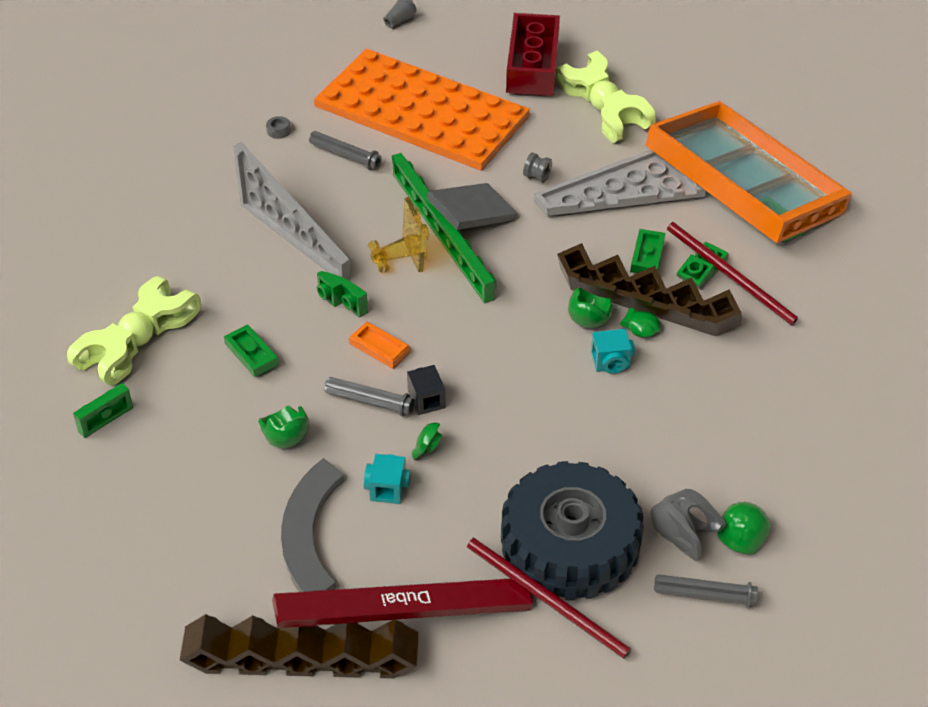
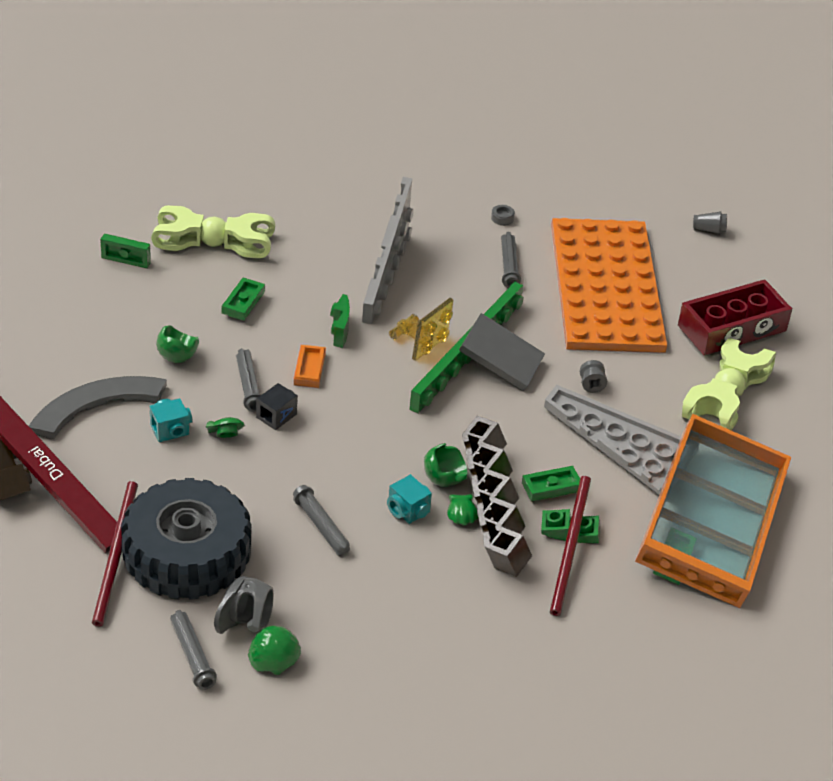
camera: 55 degrees right, 5 degrees down
(595, 423) = (305, 497): none -> dark grey axle

